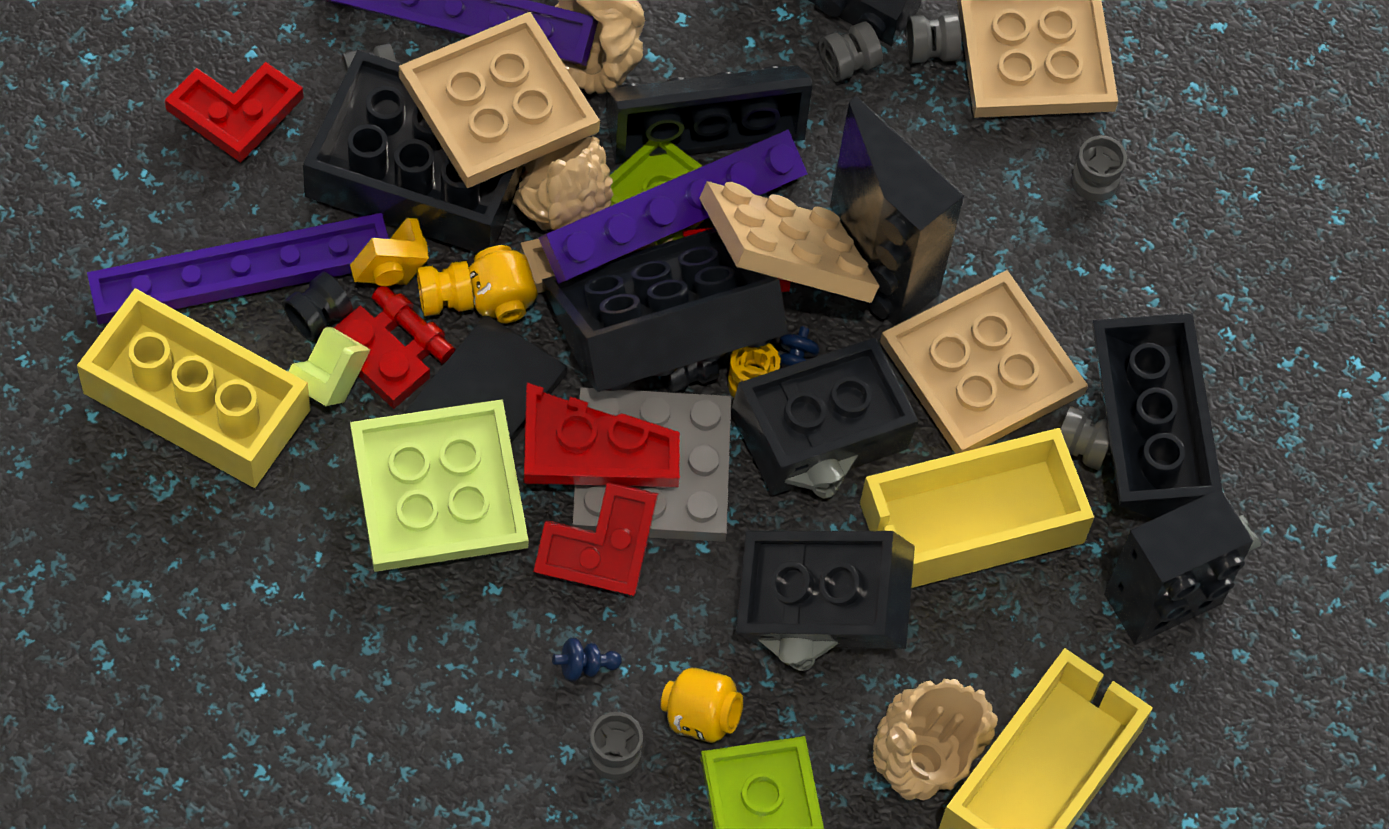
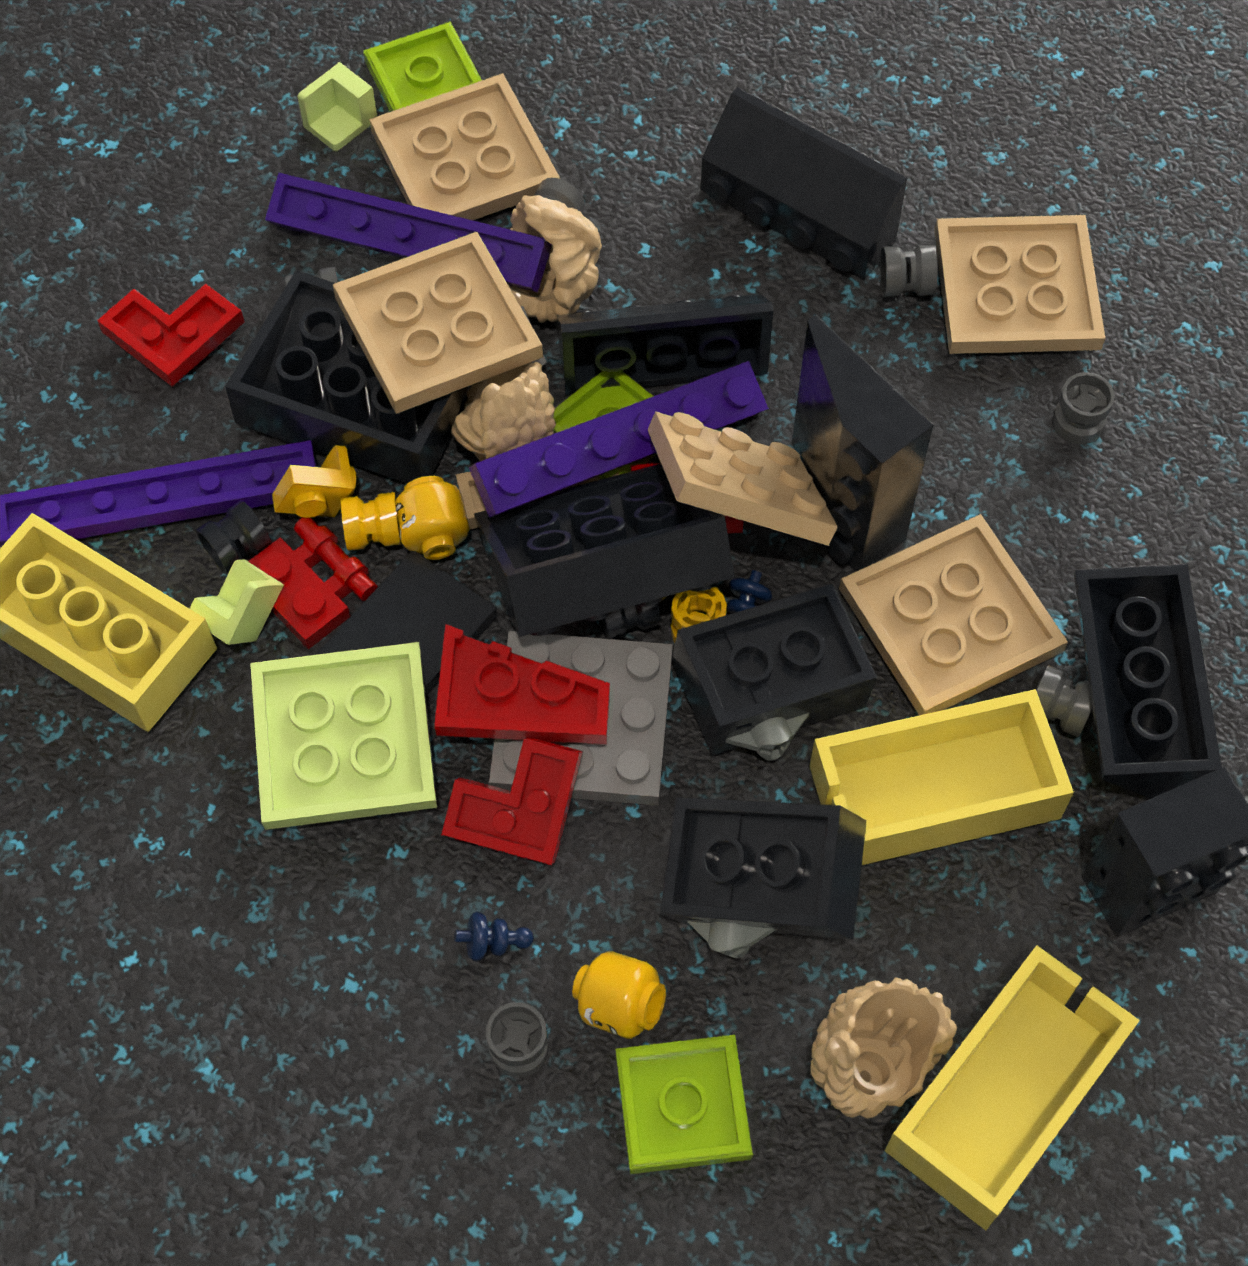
camera: 10 degrees right, 0 degrees up
(850, 51) = (820, 283): dark grey wheel -> none

